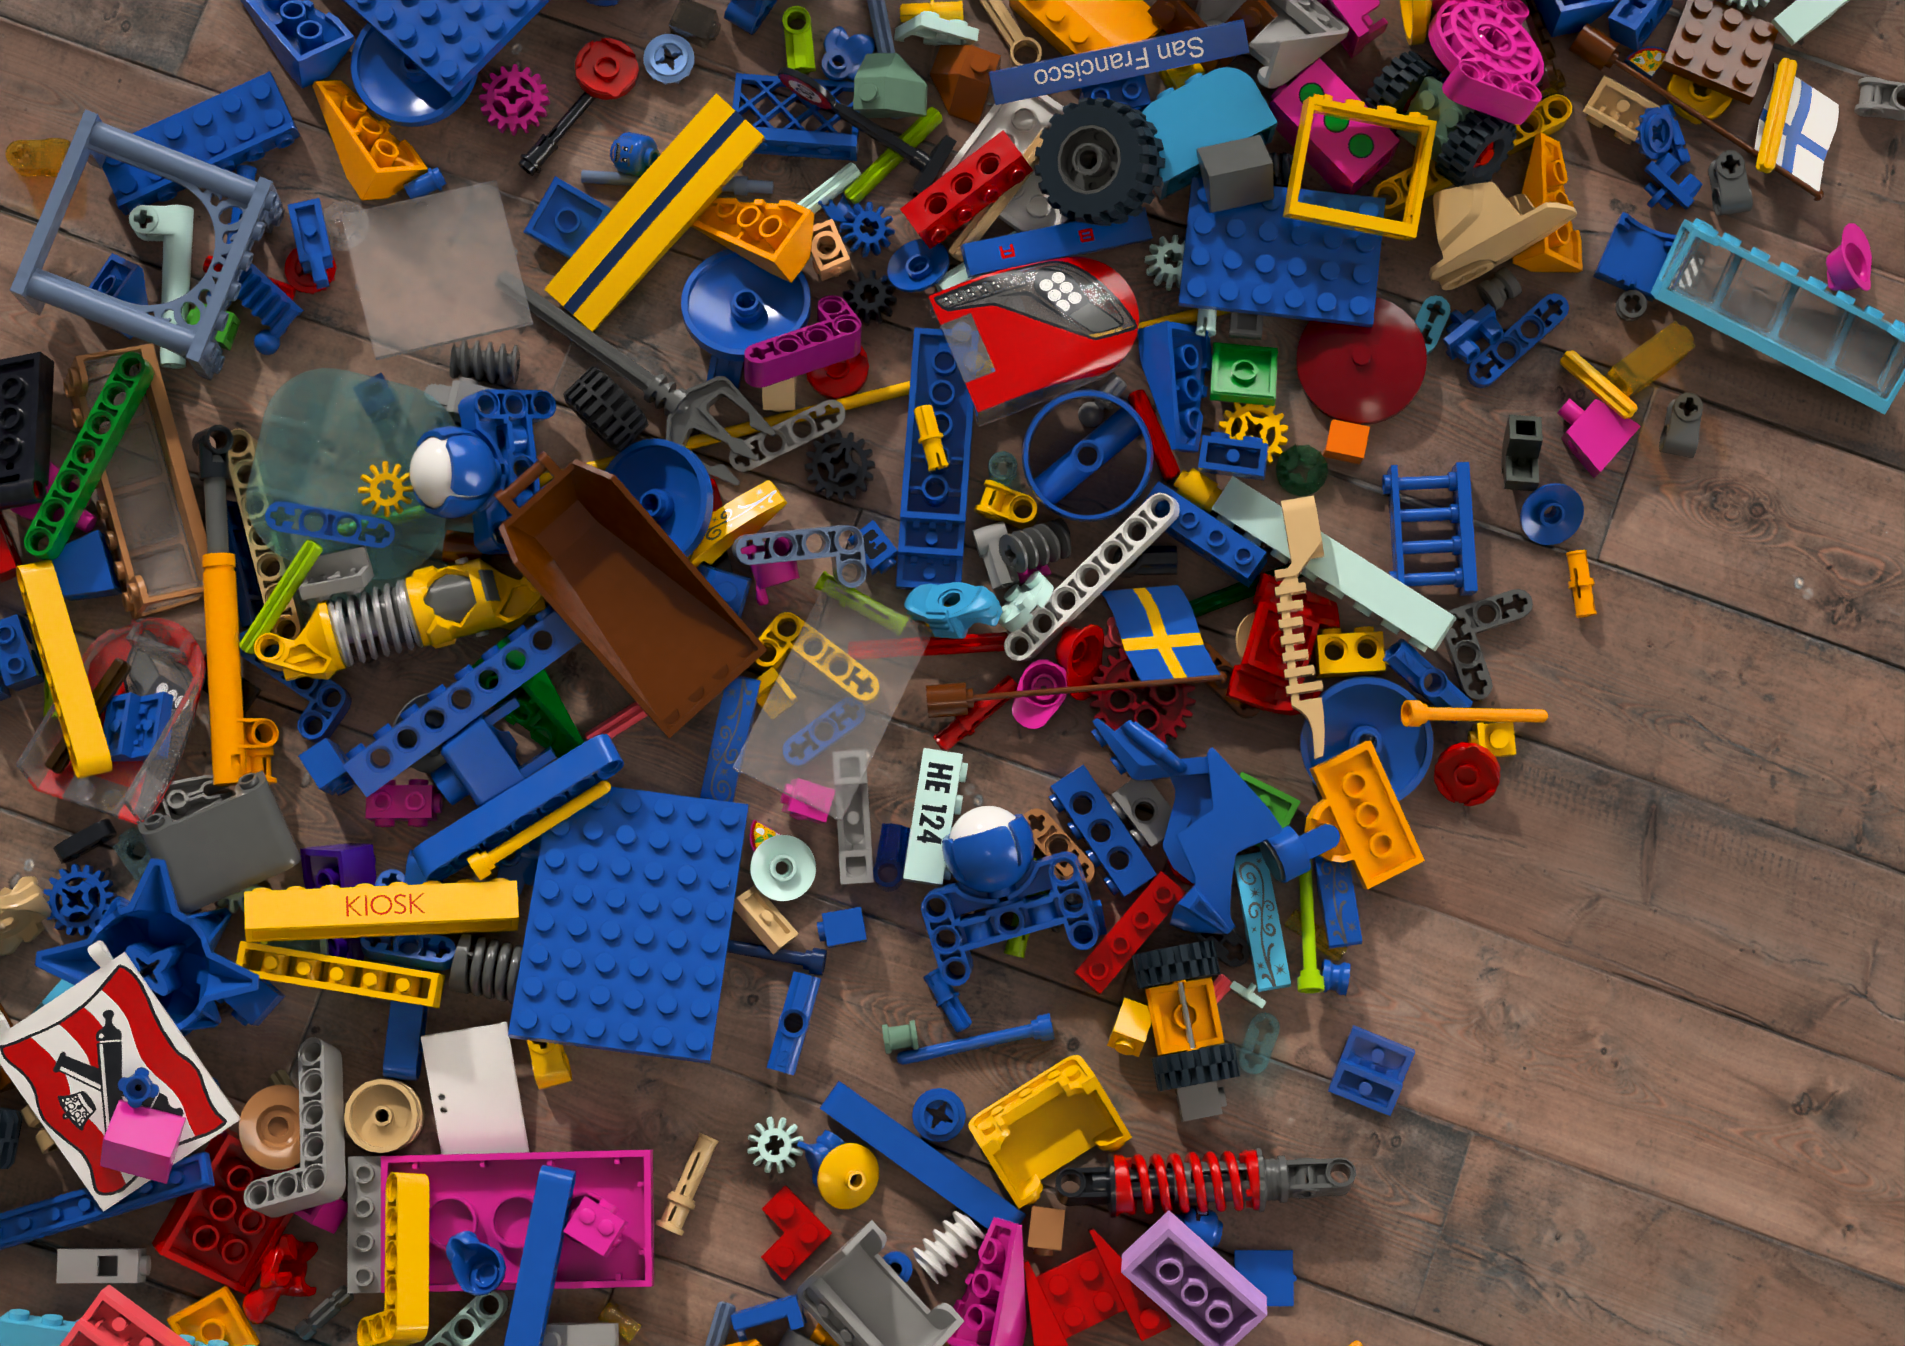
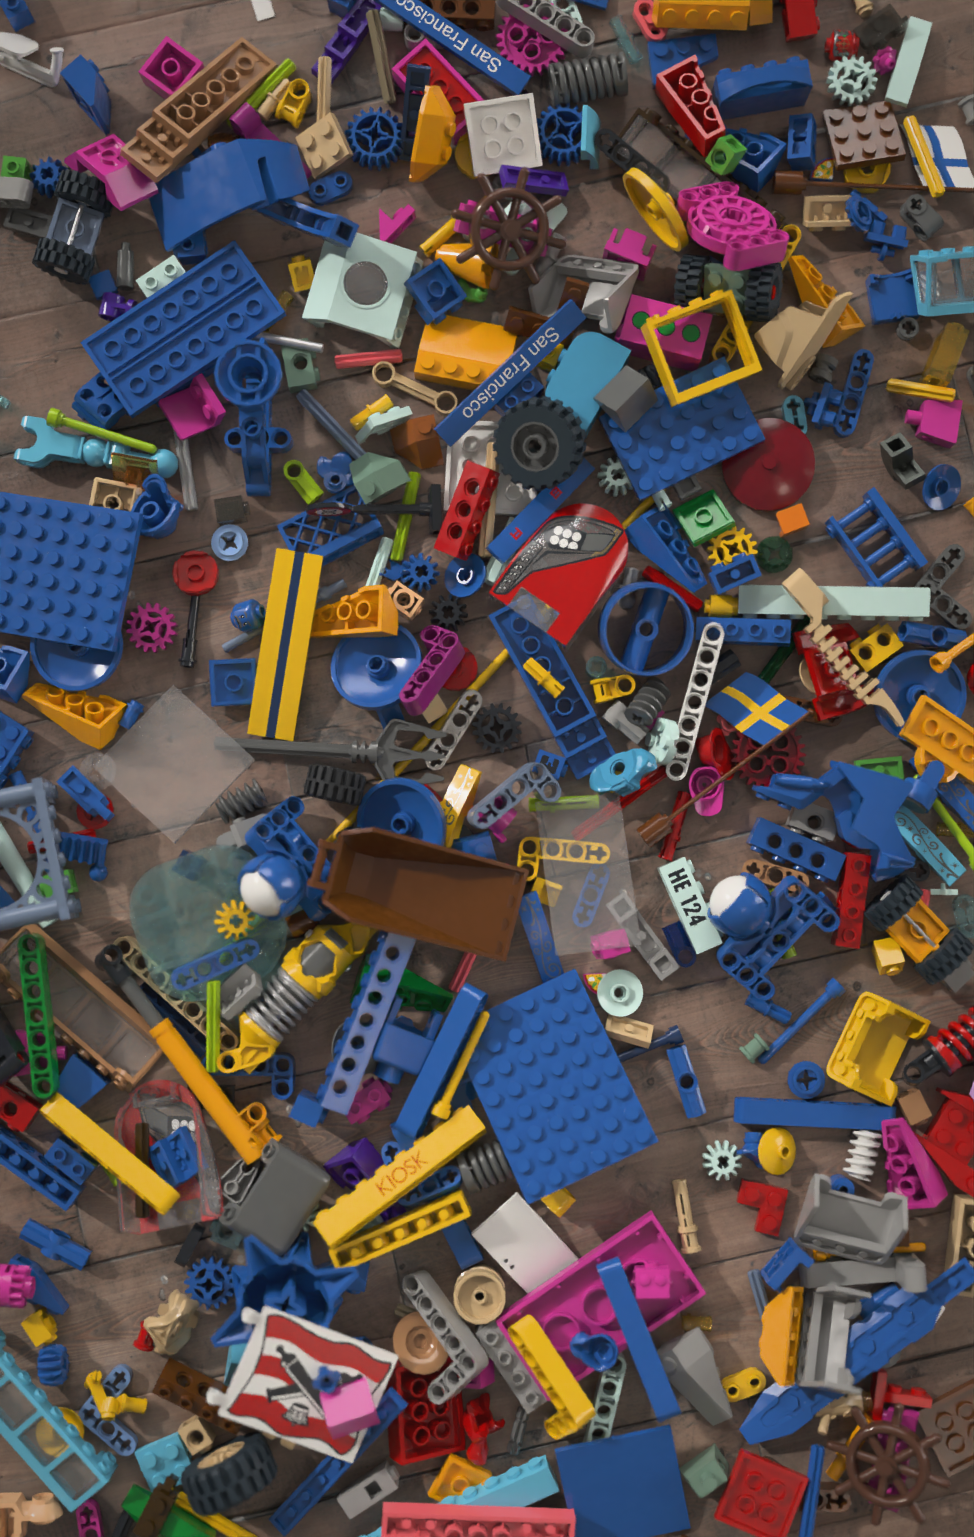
camera: 30 degrees left, 5 degrees up
(842, 927) = (678, 1005): blue brick -> none

